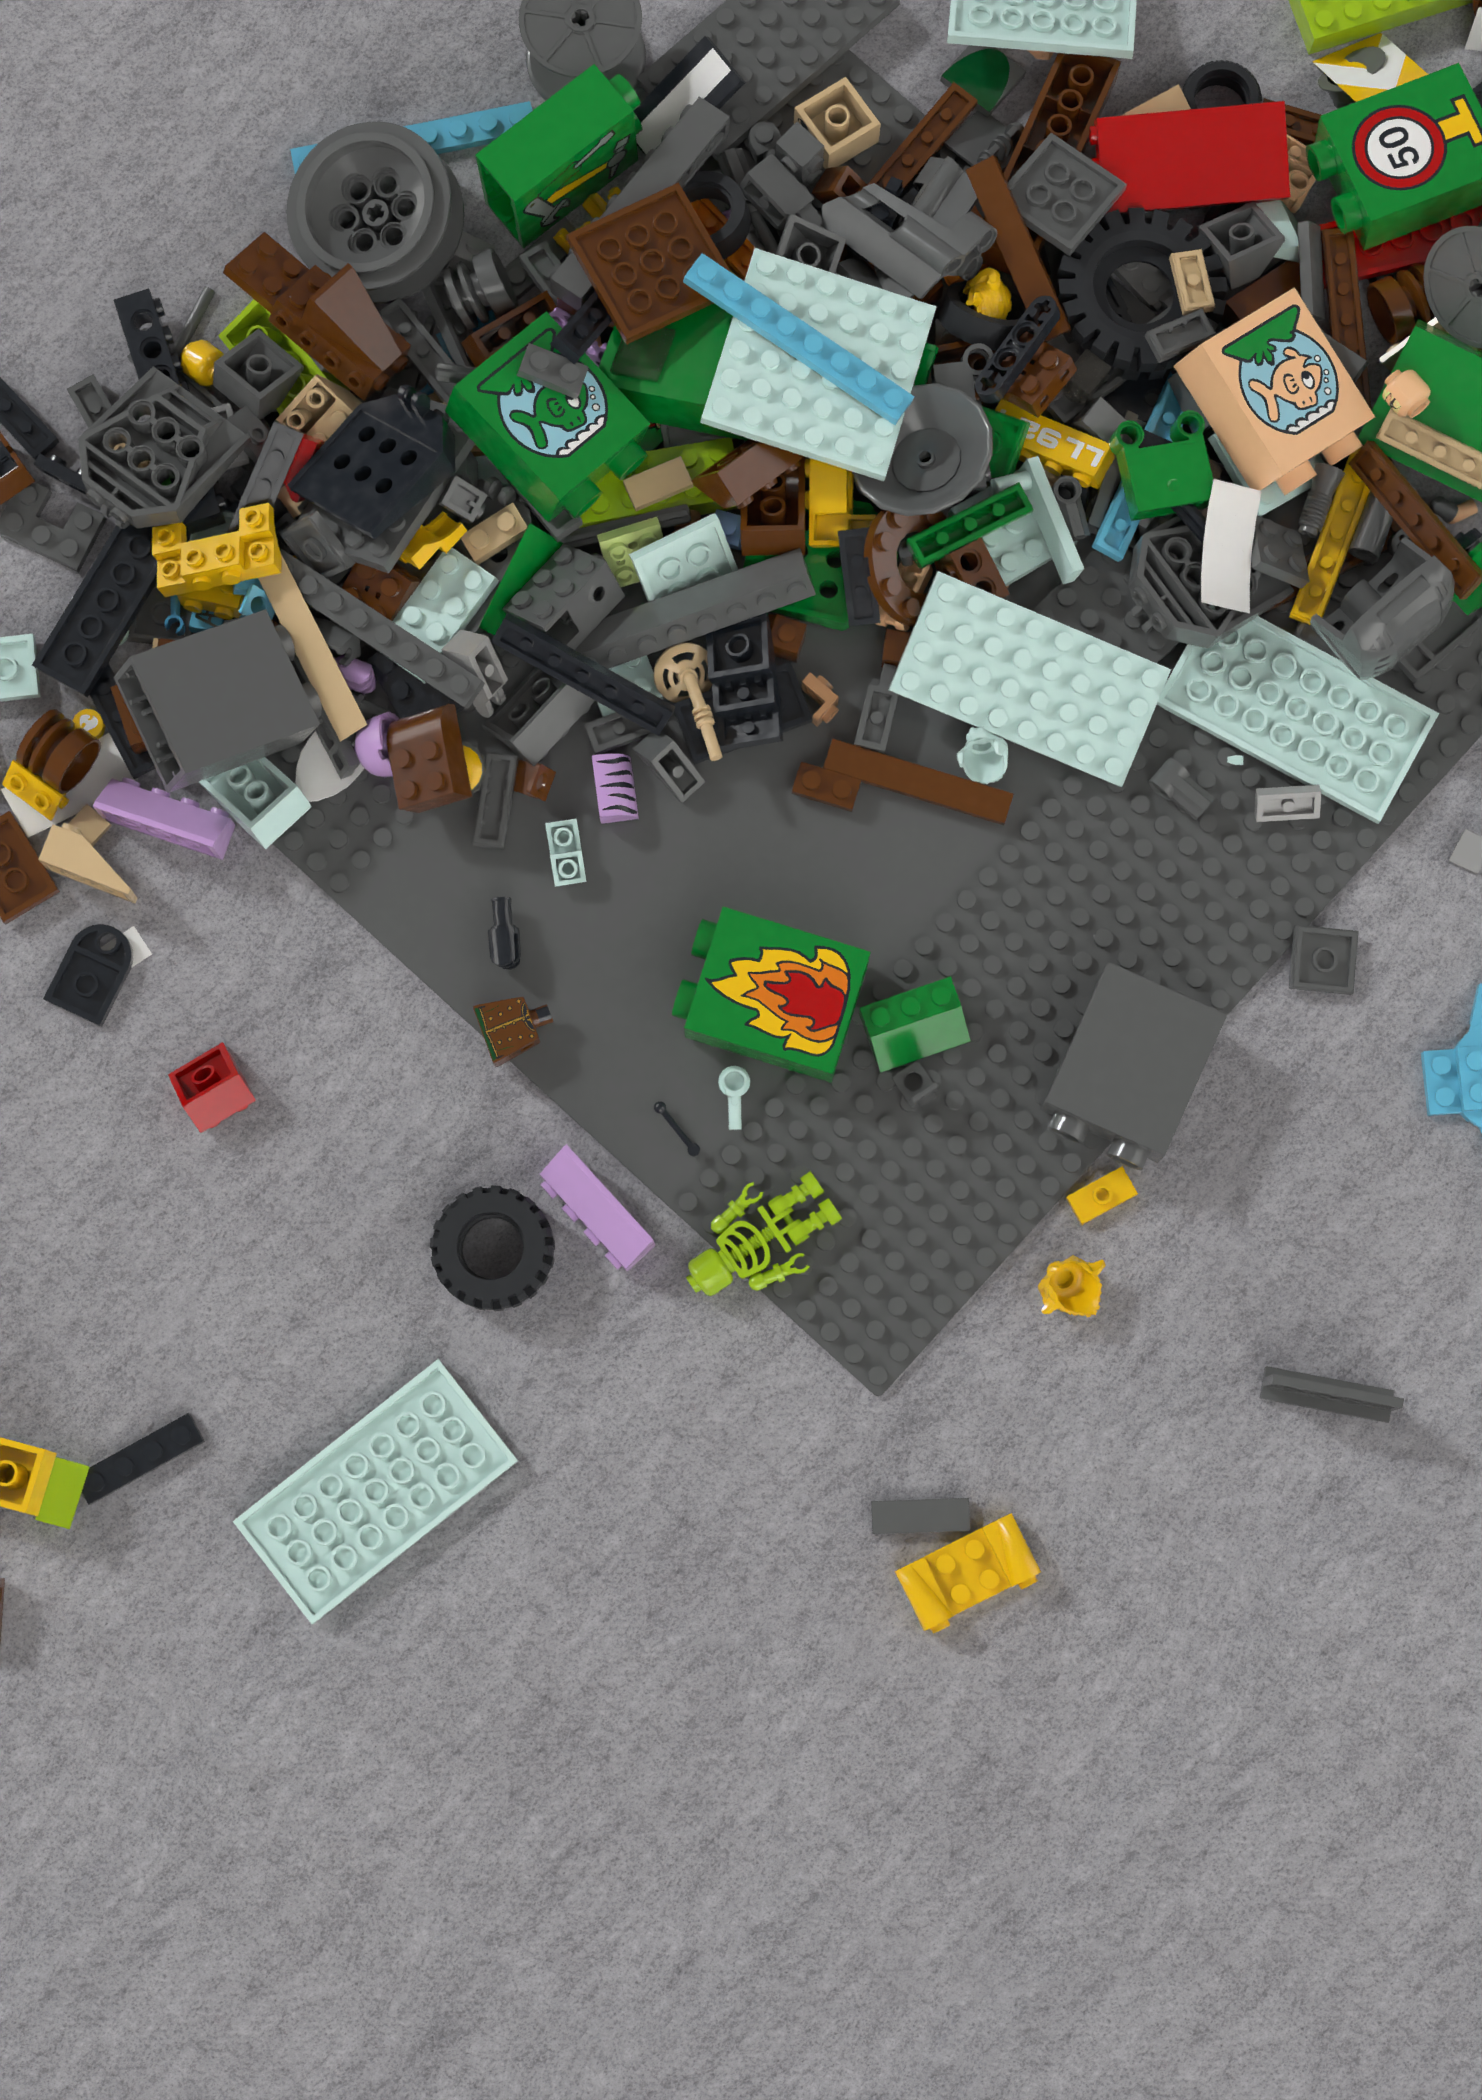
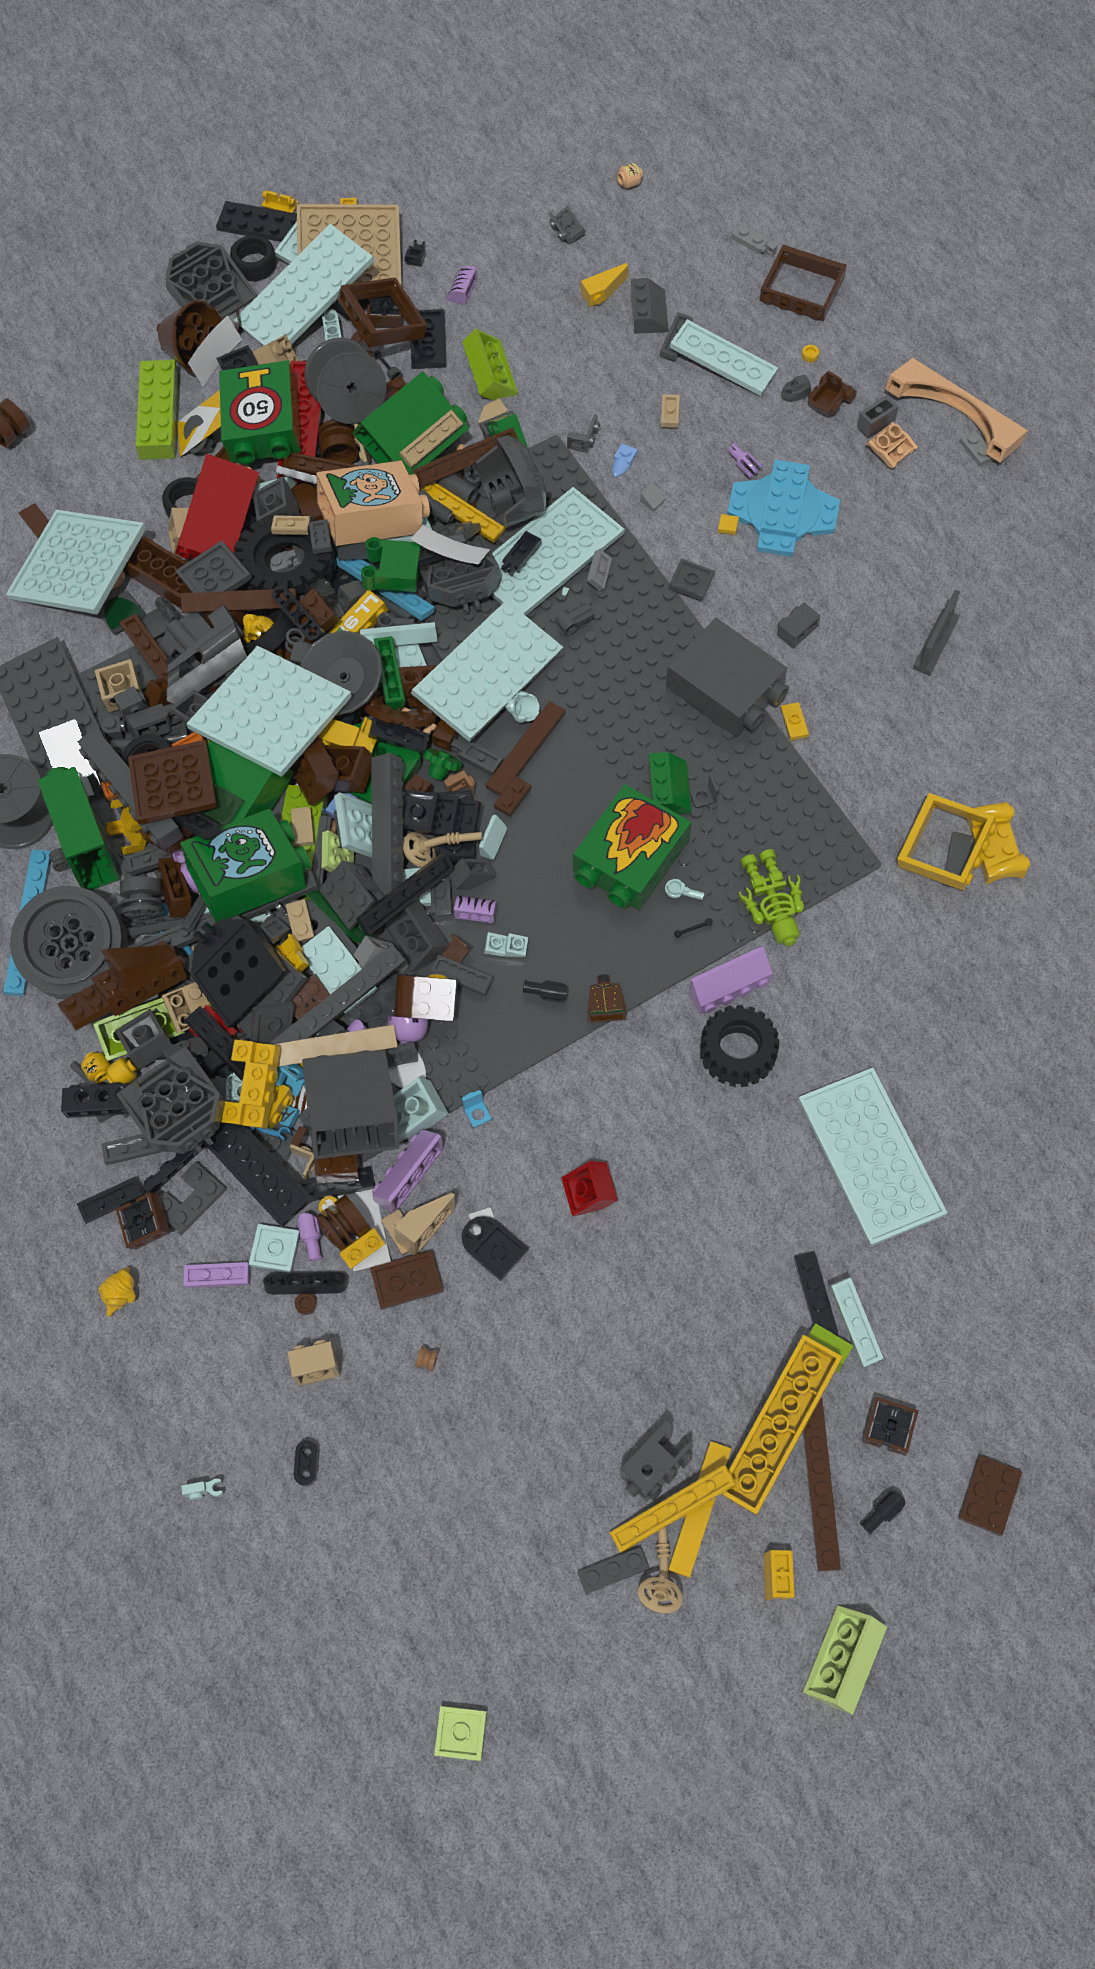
camera: 75 degrees left, 15 degrees down
(33, 709) = (310, 1234): none -> lavender arm
(107, 1523) = (856, 1321): none -> light aqua piece
(206, 322) = (95, 1067): none -> yellow head
(301, 880) = (472, 1102): none -> medium azure bracket
(552, 371) = (219, 845): dark grey plate -> none
(741, 778) = (492, 838): none -> light aqua slope
(798, 339) = (251, 711): medium azure plate -> none
(847, 658) = (441, 763): none -> green plant
(947, 1439) = (937, 874): none -> yellow window
(1072, 1287) = (845, 745): yellow hair -> none
(1272, 665) = (520, 552): none -> black hinge
(1283, 1156) = (798, 624): none -> dark grey brick
(1406, 393) = (395, 438): light nougat head -> none
(1456, 991) = (728, 524): none -> yellow tile

